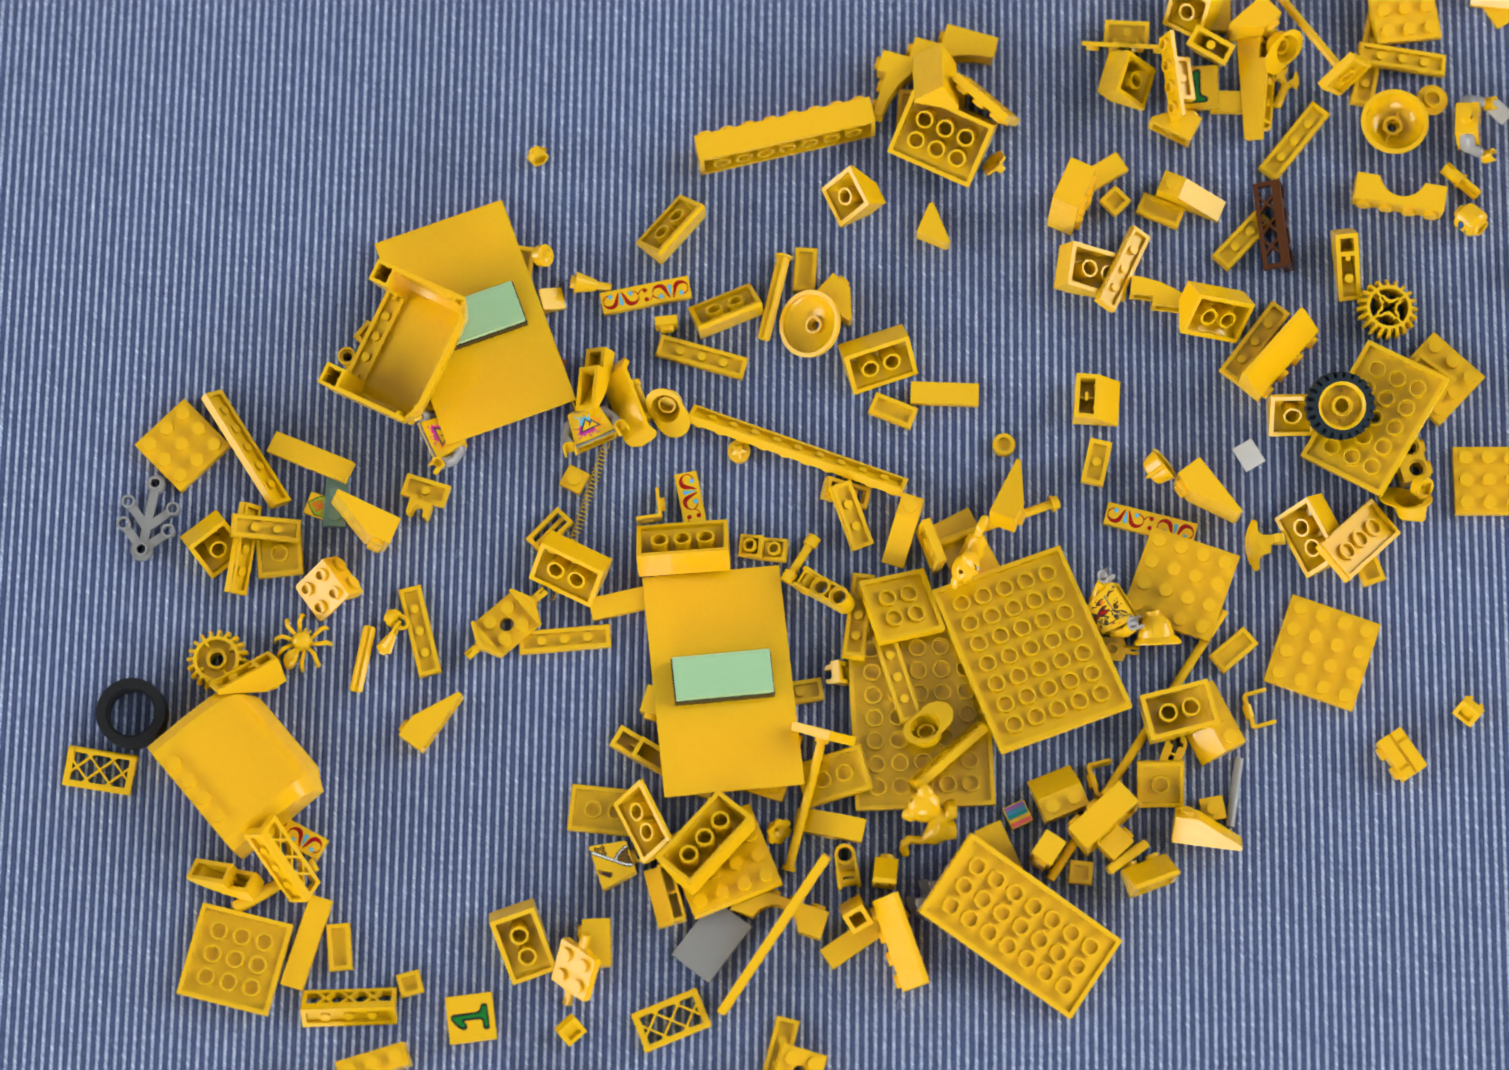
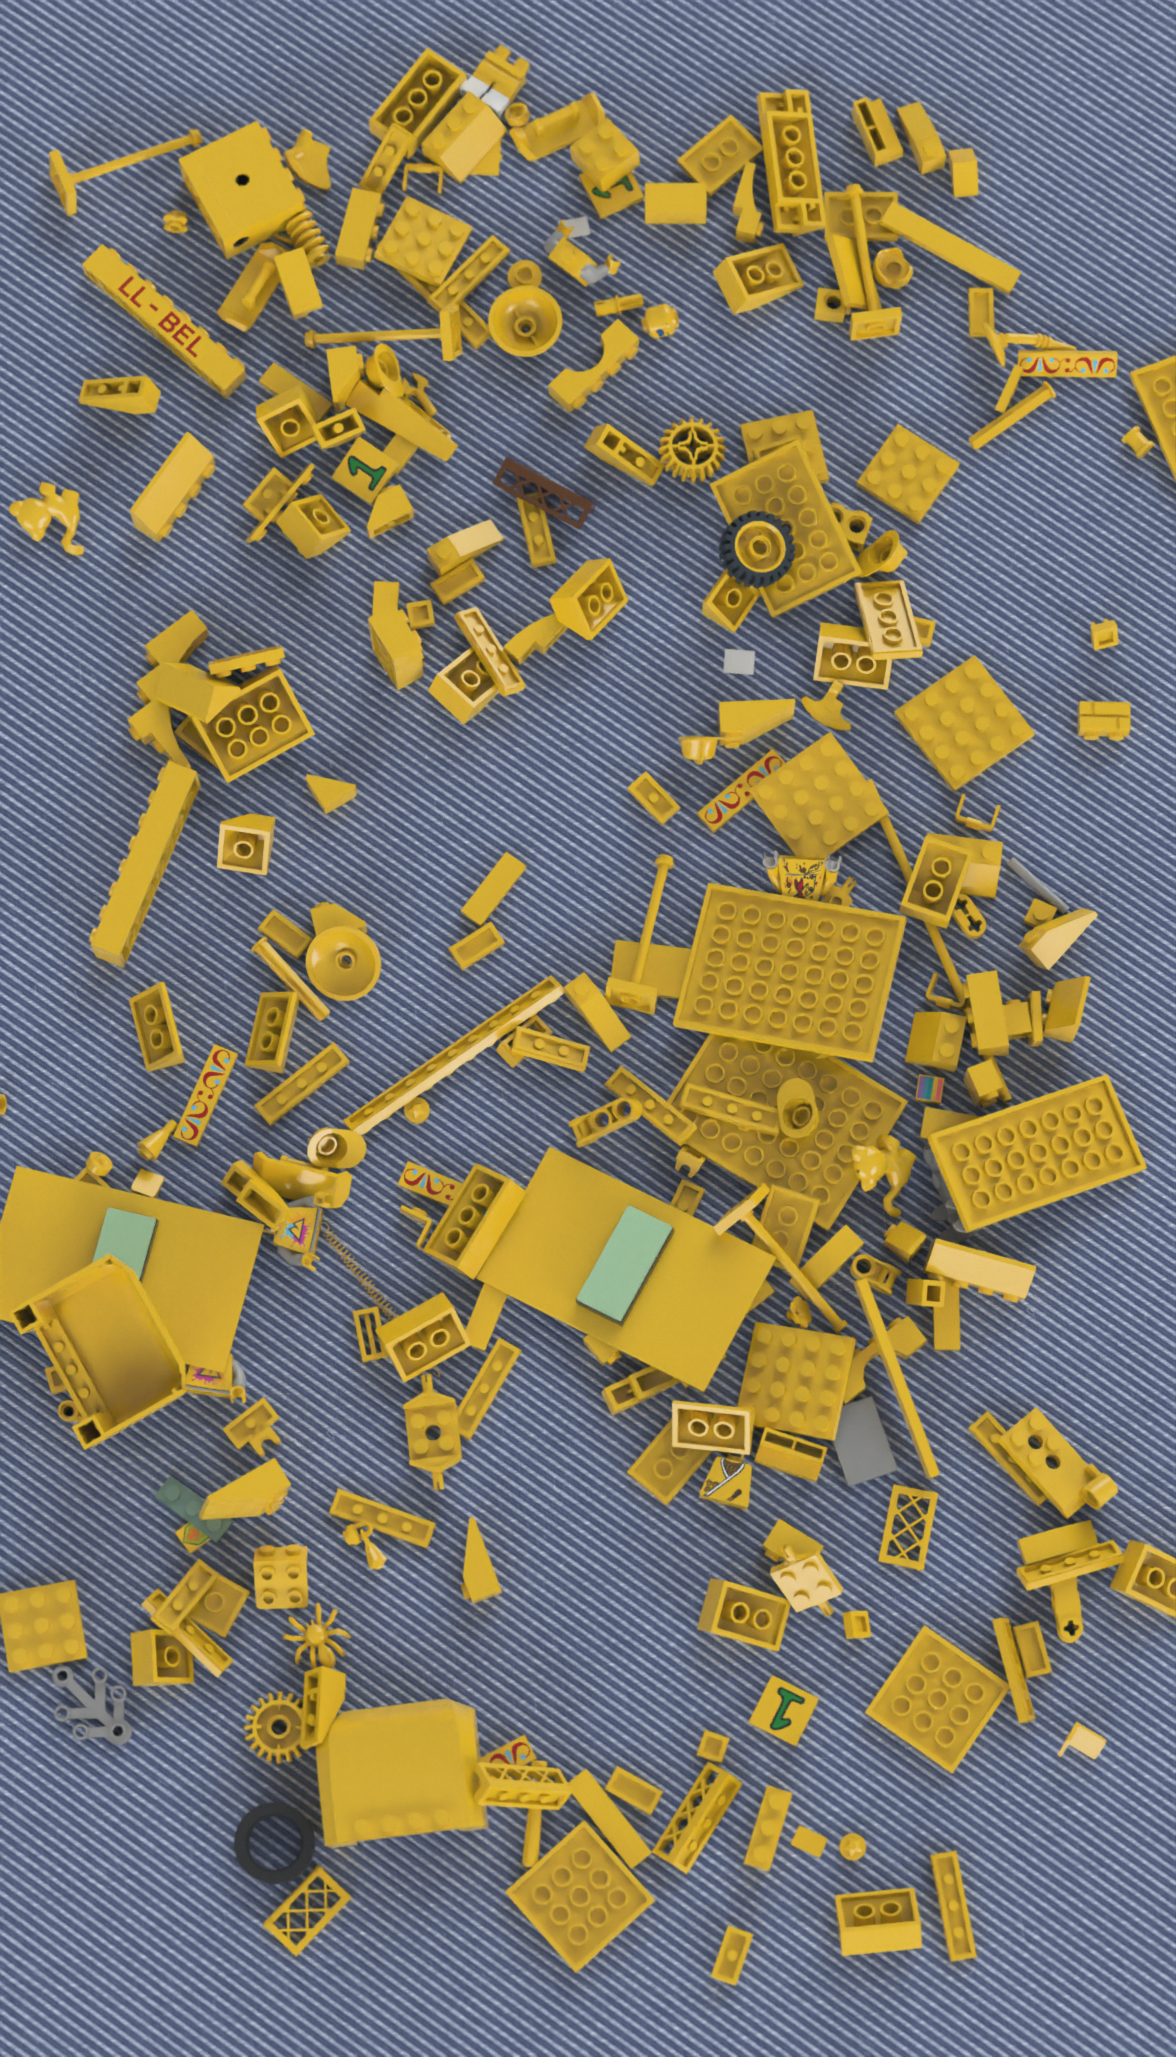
camera: 60 degrees left, 0 degrees up
(226, 879) = (497, 1855): yellow slope -> none
(246, 449) = (89, 1567): yellow plate -> none
(311, 457) = (142, 1510): yellow tile -> none
(362, 658) = (358, 1575): yellow axle -> none
(574, 479) = (337, 1278): yellow plate -> none
(666, 324) = (248, 1094): yellow plate -> none
(706, 841) = (771, 1380): yellow slope -> none
(763, 548) = (524, 1149): yellow slope -> none
(810, 543) = (566, 1141): yellow bar -> none
(878, 359) = (419, 925): yellow slope -> none
(901, 606) = (669, 1060): yellow plate -> none
(948, 754) = (836, 1111): yellow tile -> none
(967, 562) = (671, 975): yellow animal -> none
(994, 163) = (307, 695): yellow plant -> none
(1003, 445) = (578, 869): yellow tile -> none
(1008, 506) = (640, 896): yellow slope -> none
(1080, 872) = (1019, 1069): yellow tile -> none
(1095, 400) = (596, 759): yellow slope -> none
(1156, 630) = (852, 850): yellow hat -> none
(1160, 783) = (988, 943): yellow tile -> none
(1177, 76) = (346, 478): yellow bracket -> none
(1233, 650) = (909, 798): yellow tile -> none
(1254, 341) = (639, 584): yellow tile -> none
(1279, 355) = (669, 572): yellow slope -> none
(1294, 141) = (476, 421): yellow tile -> none
(1421, 487) = (877, 532): yellow tile -> none

